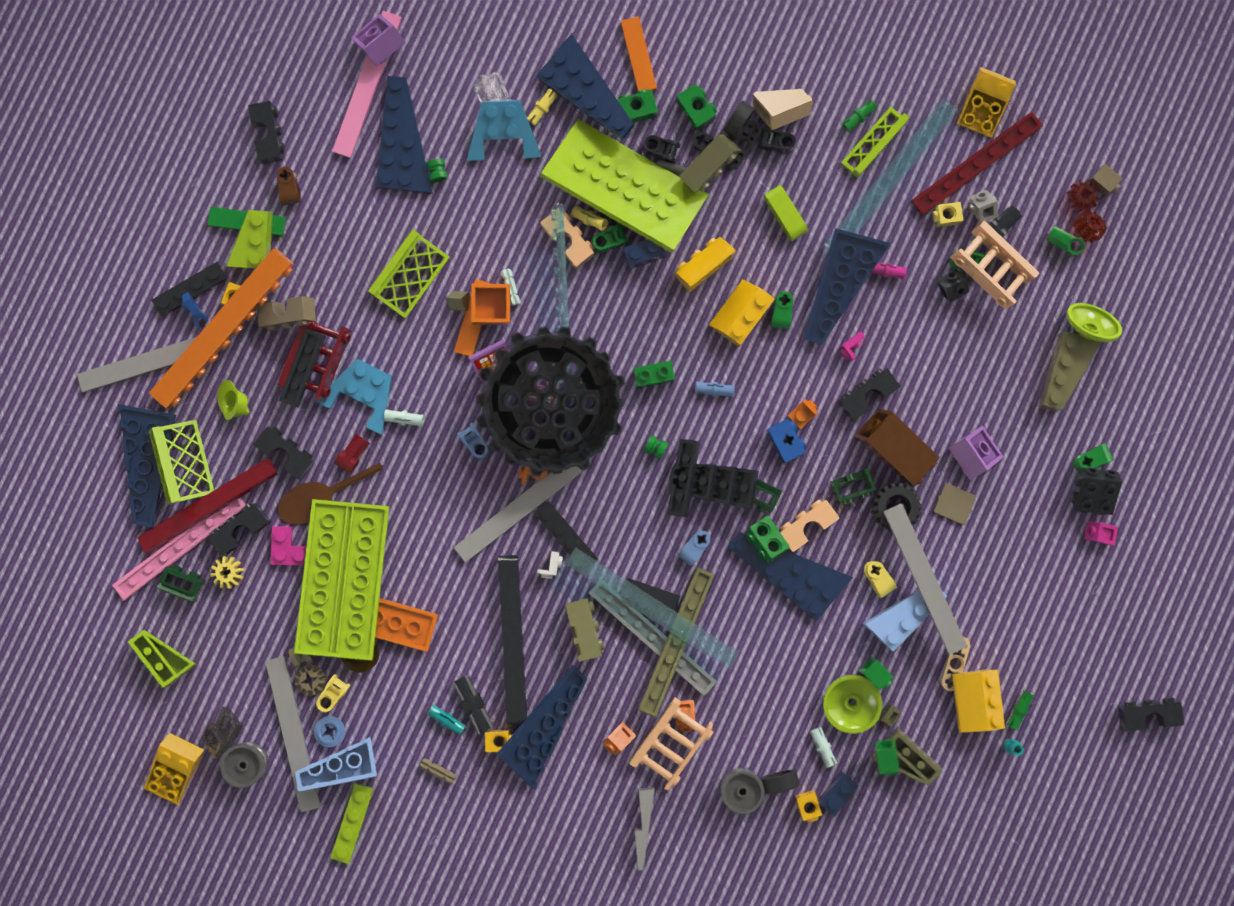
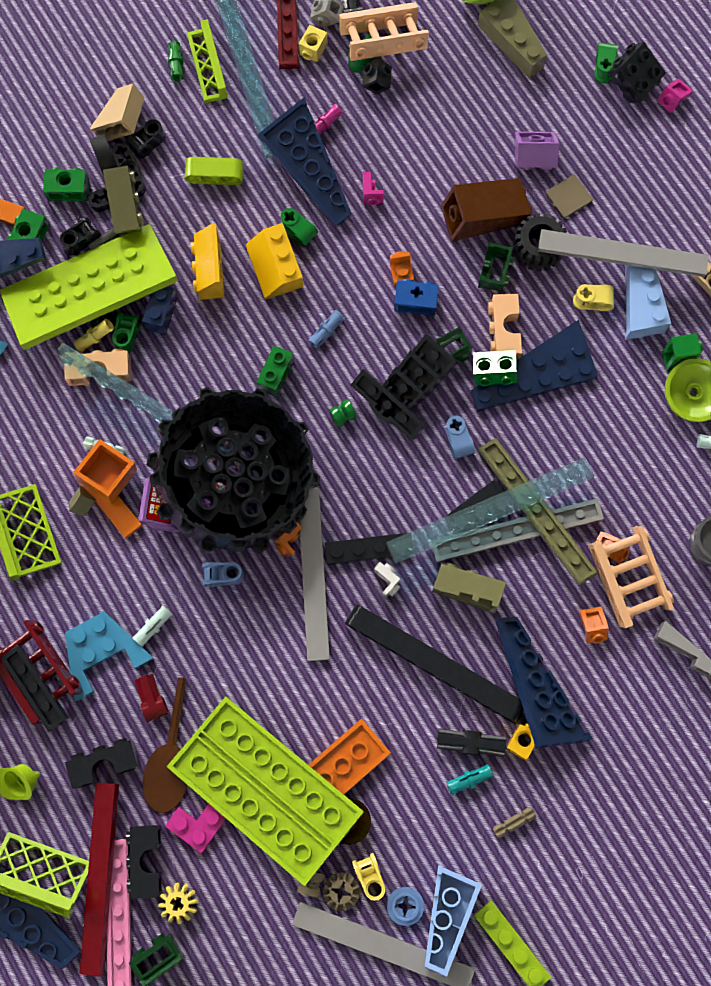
camera: 55 degrees left, 10 degrees down
(882, 383) = (423, 219): black arch -> none

